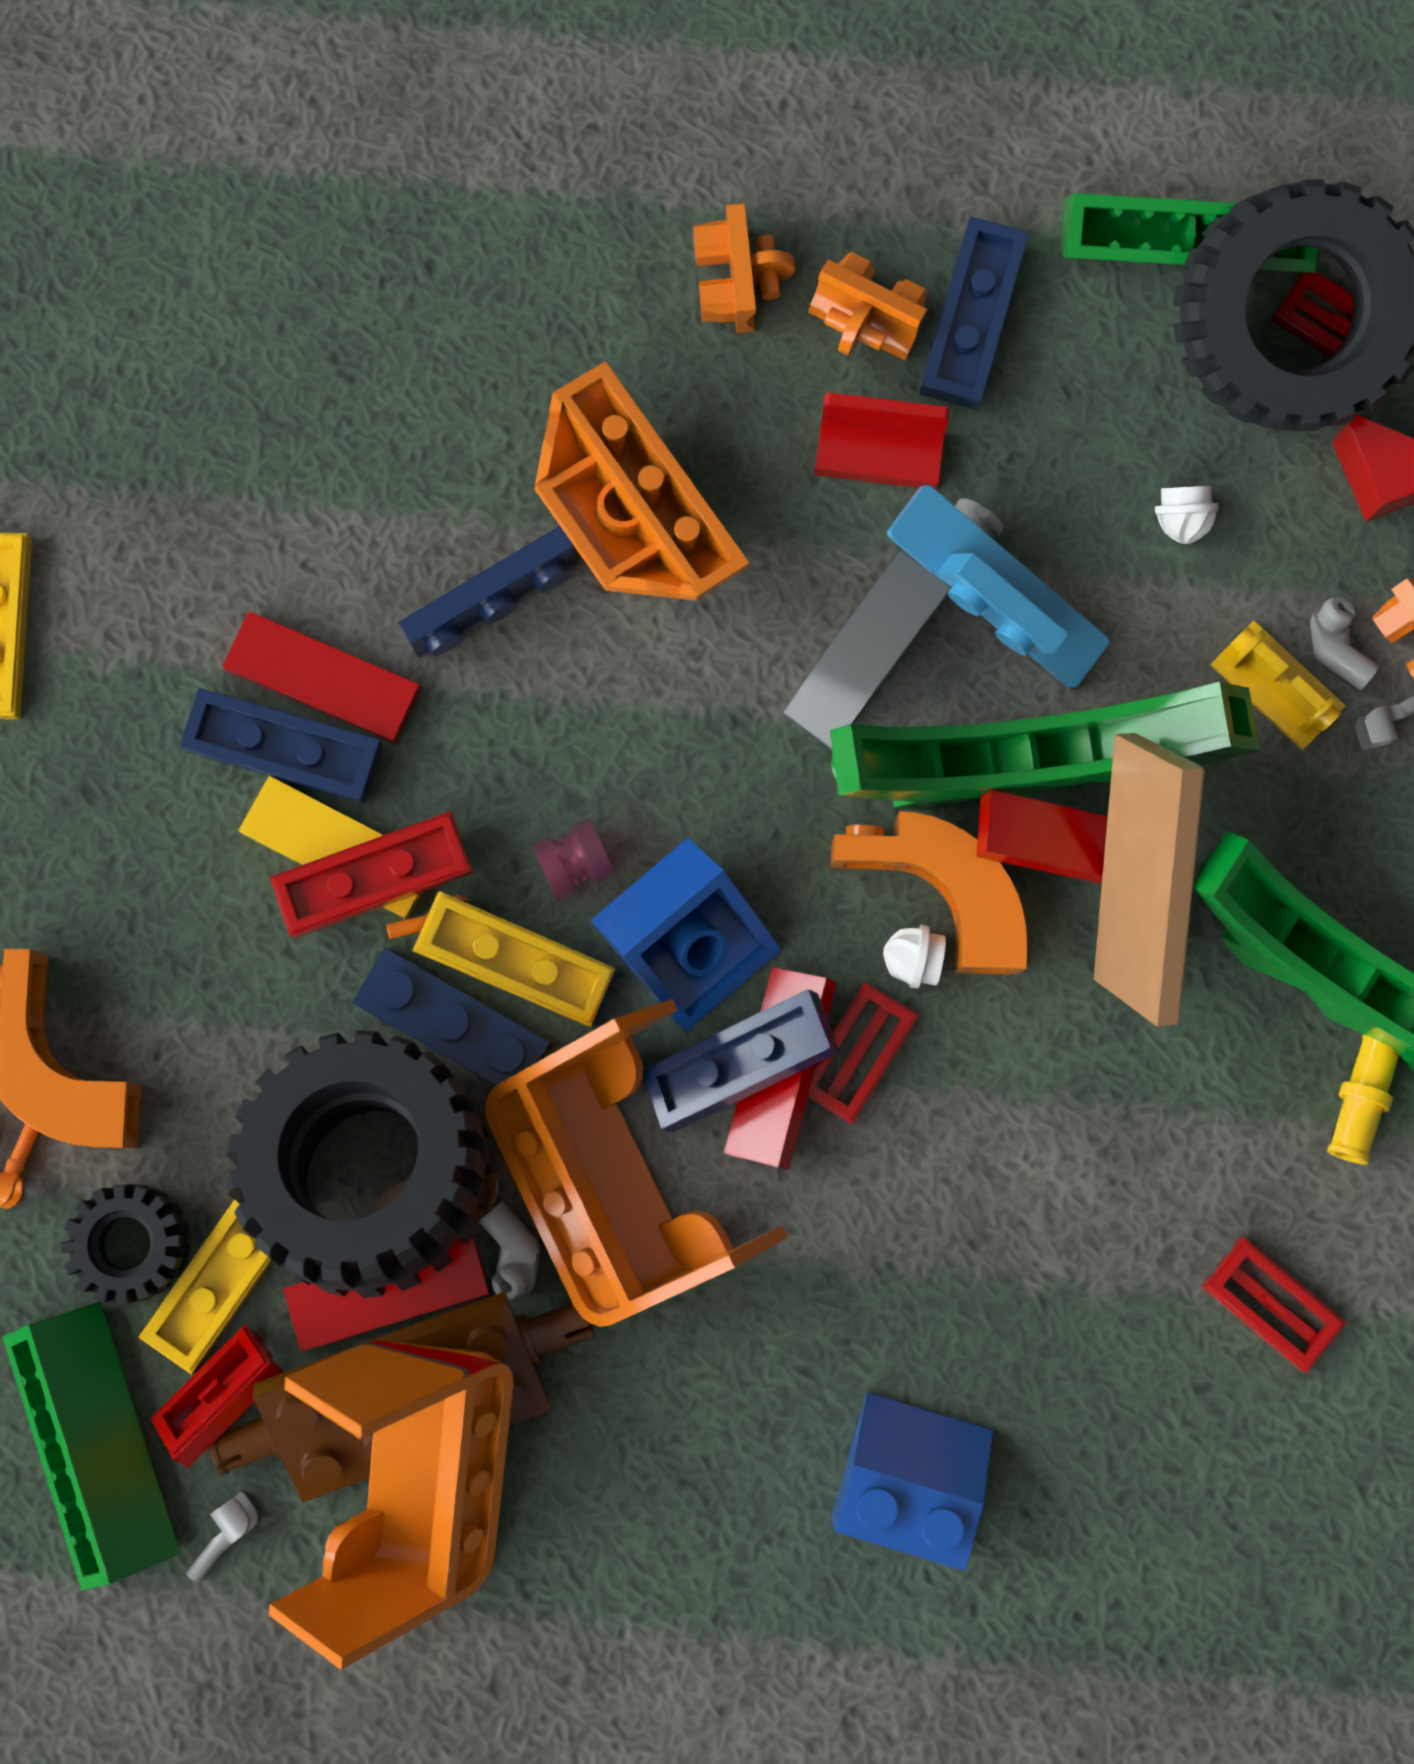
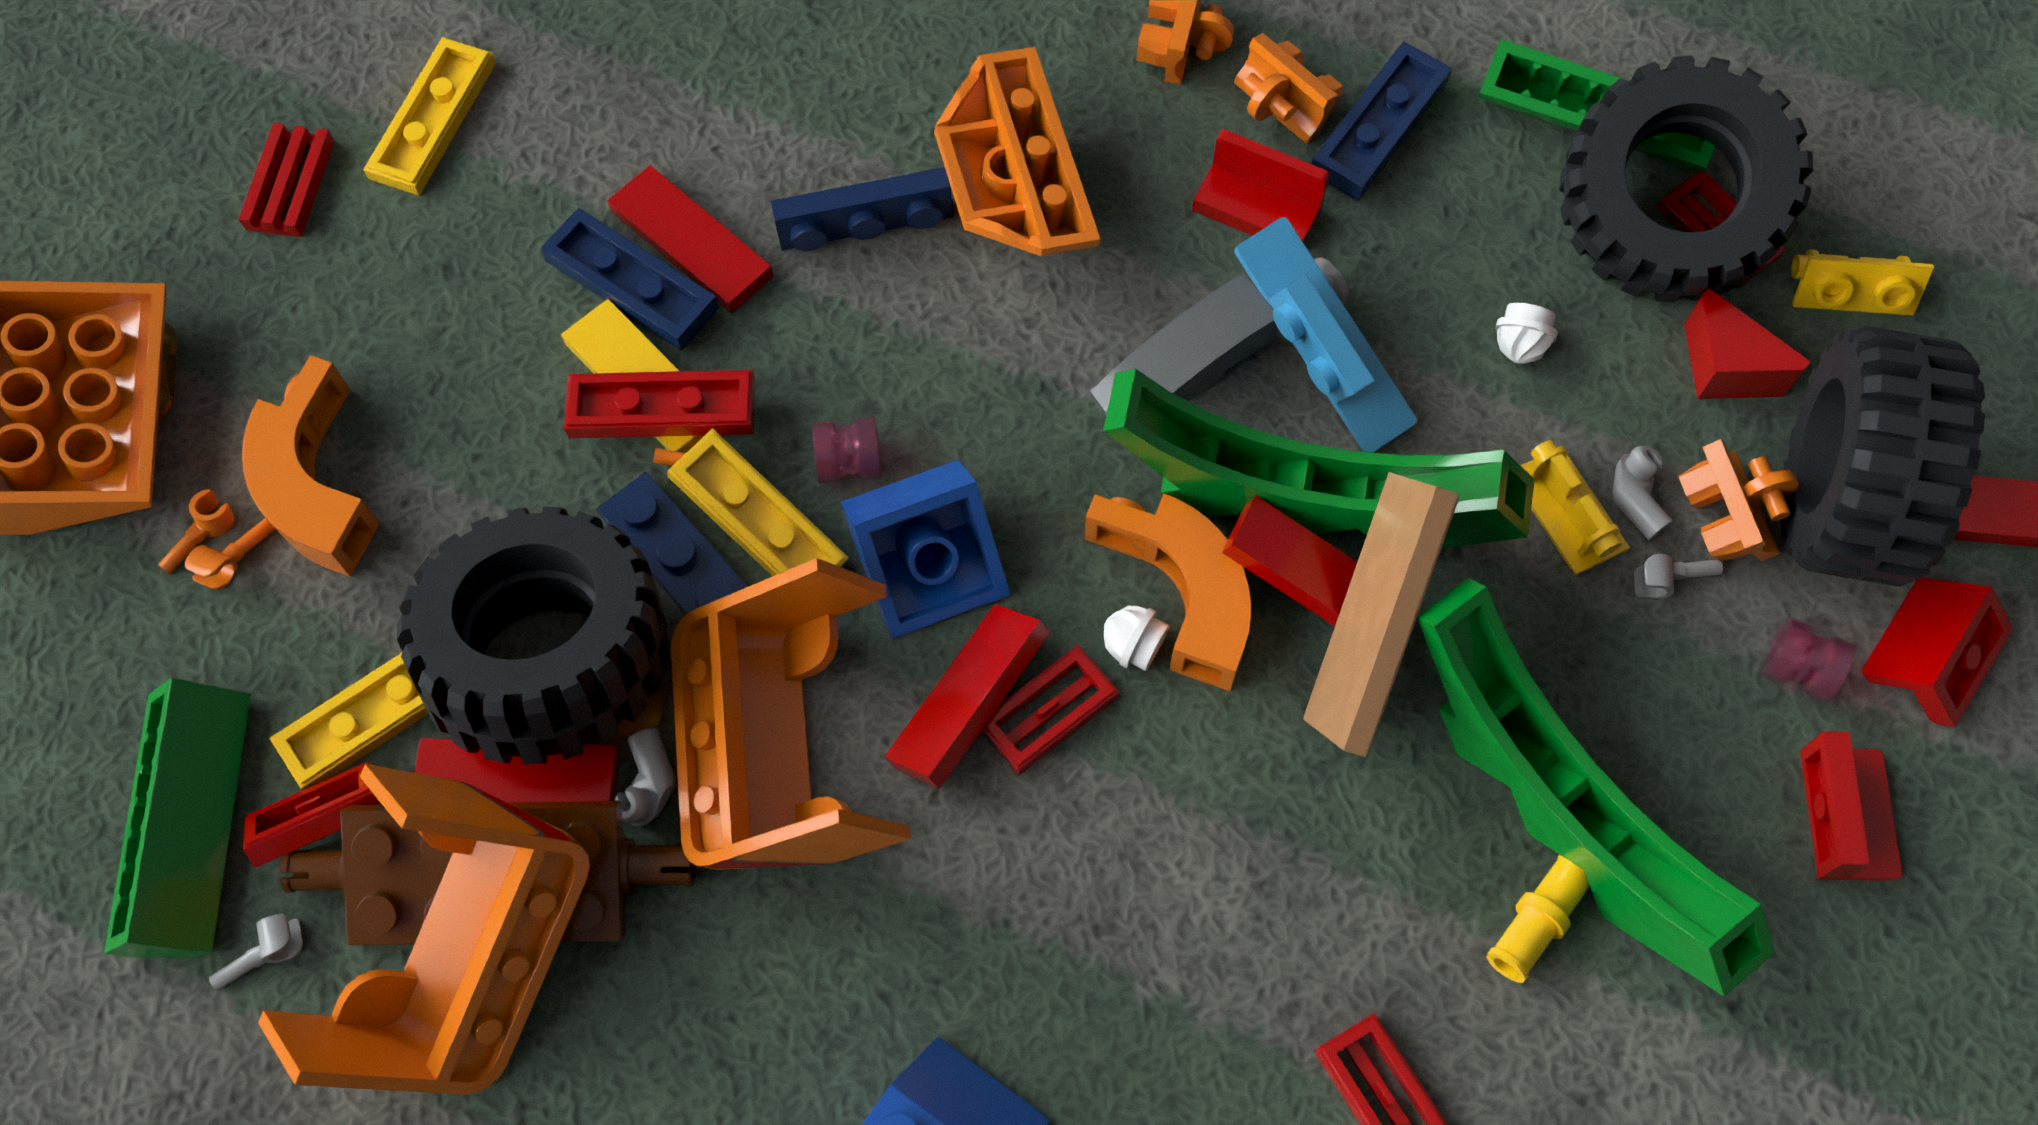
camera: 20 degrees right, 15 degrees down
(88, 1235) = (271, 626): black tyre -> none
(740, 1061) = (930, 668): dark blue plate -> none

